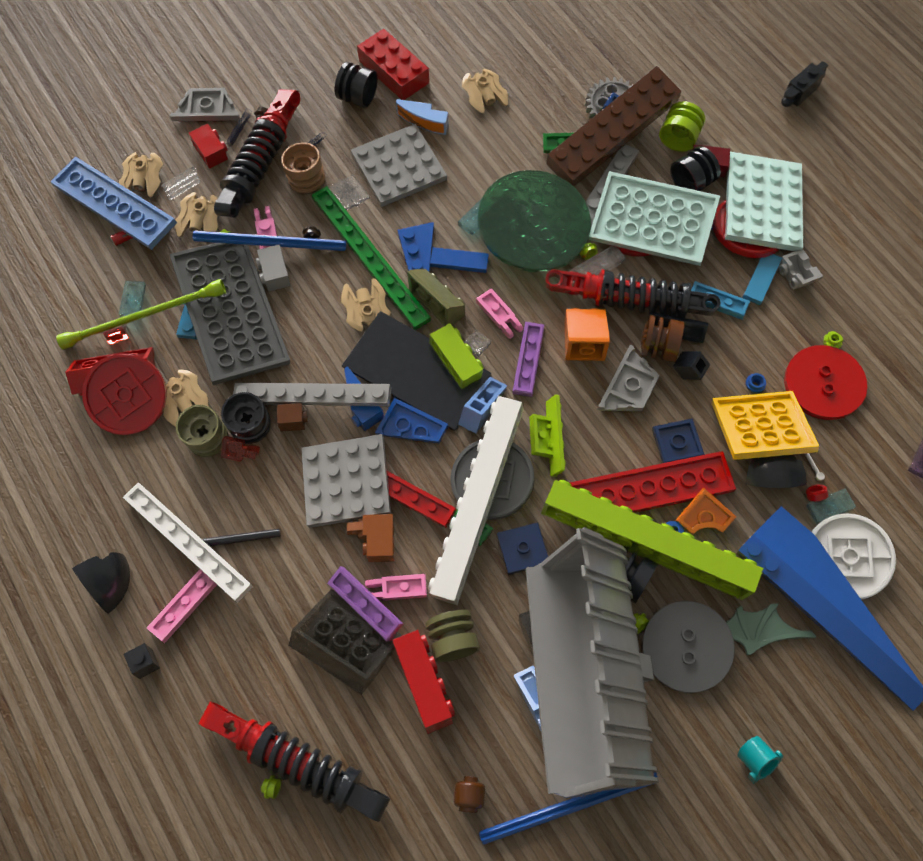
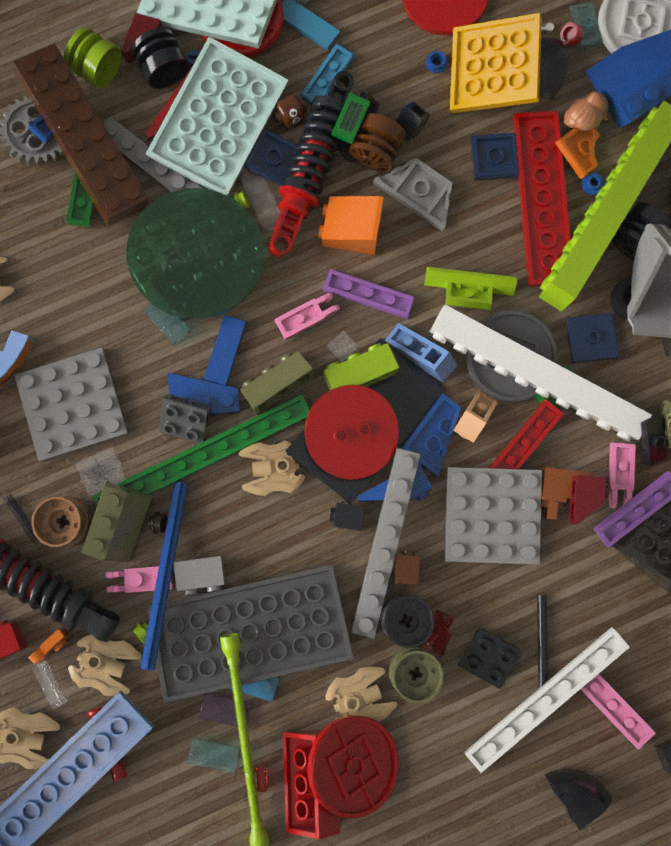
camera: 80 degrees left, 15 degrees up
(166, 294) = (221, 710): none -> plate
(212, 180) = (53, 643): none -> orange plate
(221, 494) = (490, 658): none -> black hinge
(306, 201) = (116, 523): none -> olive slope
(331, 366) = (347, 516): none -> black brick
(367, 546) = (586, 496): none -> dark red slope
(398, 235) = (183, 419): none -> dark grey hinge
(401, 351) = (351, 432): none -> red plate
(430, 607) = (653, 440): none -> black plate
(432, 454) = (475, 416): none -> light nougat slope
(633, 262) = (271, 157): none -> dark blue plate
(676, 271) = (289, 110): none -> reddish brown head
(676, 309) = (350, 118): none -> green tile
(740, 514) = (588, 112): none -> nougat hair

